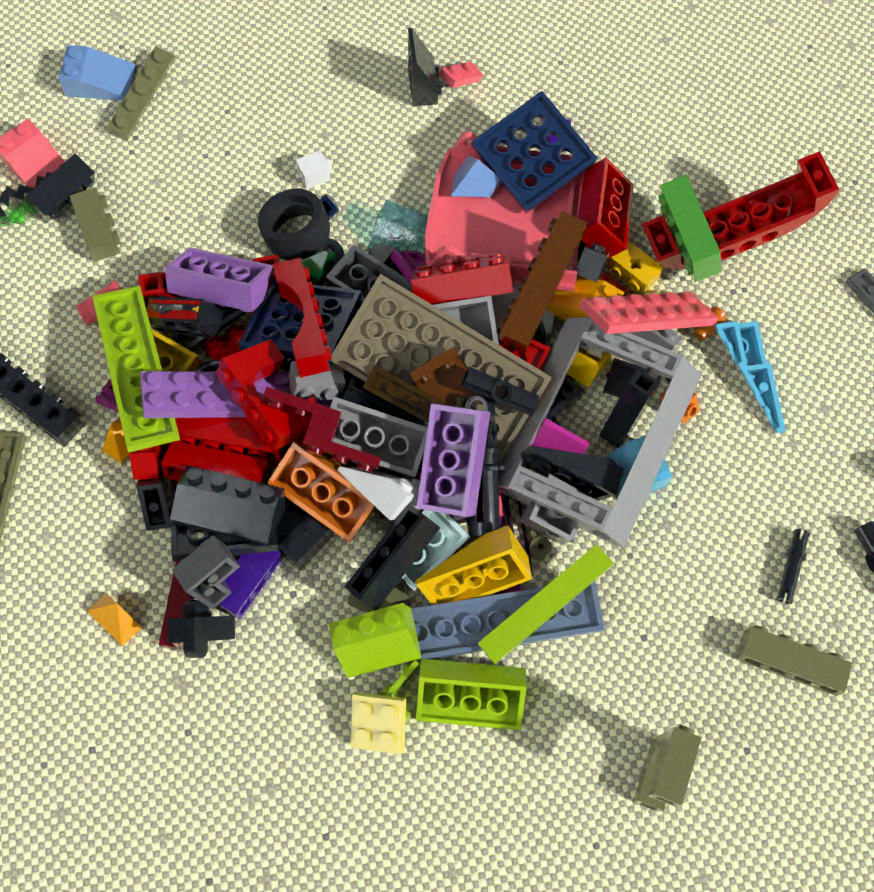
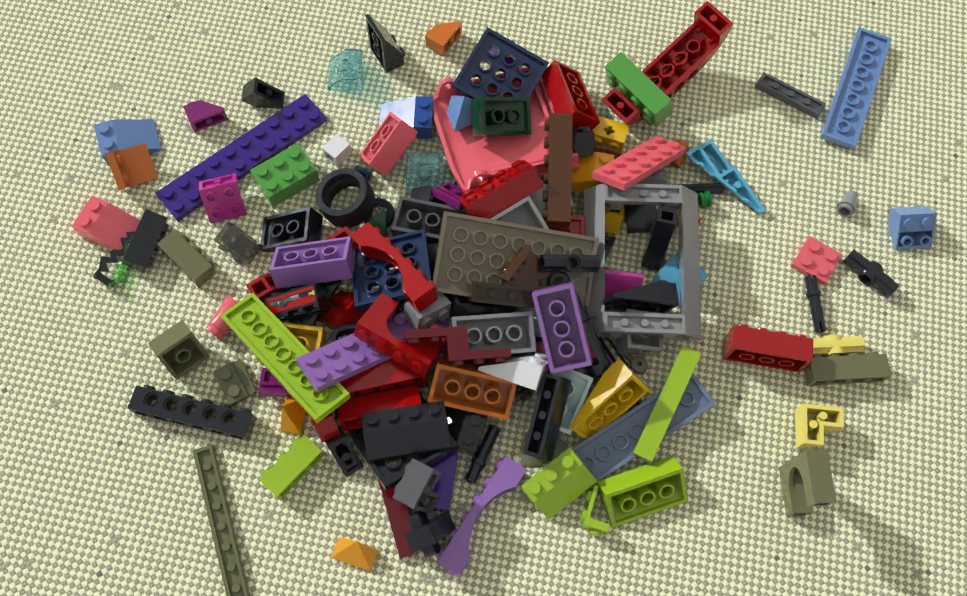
camera: 25 degrees left, 0 degrees up
(34, 316) = (178, 349): none -> olive brick
(80, 377) = (235, 382): none -> olive plate
(84, 103) = (131, 166): none -> orange bracket
(92, 493) = (291, 466): none -> lime brick
(140, 93) = (169, 140): olive plate -> none
(155, 229) = (238, 243): none -> clear smoke brick
(162, 174) = (222, 198): none -> dark pink bracket
(188, 78) = (204, 114): none -> magenta slope
(208, 139) = (243, 154): none -> dark purple plate
(222, 235) = (291, 228): none -> black slope
(223, 668) = (457, 553): none -> medium lavender arch
(242, 175) = (285, 175): none -> bright green brick
(262, 80) = (262, 95): none -> black slope
(301, 575) = (479, 461): none -> black pin
(369, 88) = (346, 71): none -> clear light blue slope
(371, 184) = (388, 144): none -> coral slope
(378, 723) = (590, 541): light yellow plate -> none
(409, 164) = (415, 111): none -> blue slope
(460, 74) = (412, 35): coral plate -> none
(496, 88) = (443, 36): none -> orange slope
(511, 198) = (501, 116): none -> dark green slope
(704, 593) = (768, 348): none -> red brick
(714, 388) = (704, 199): none -> green bush
(719, 375) = (713, 188): none -> black axle
(721, 702) = (813, 421): none -> light yellow brick
(791, 624) = (838, 345): none -> light yellow piece
(821, 515) = (816, 260): none -> coral plate

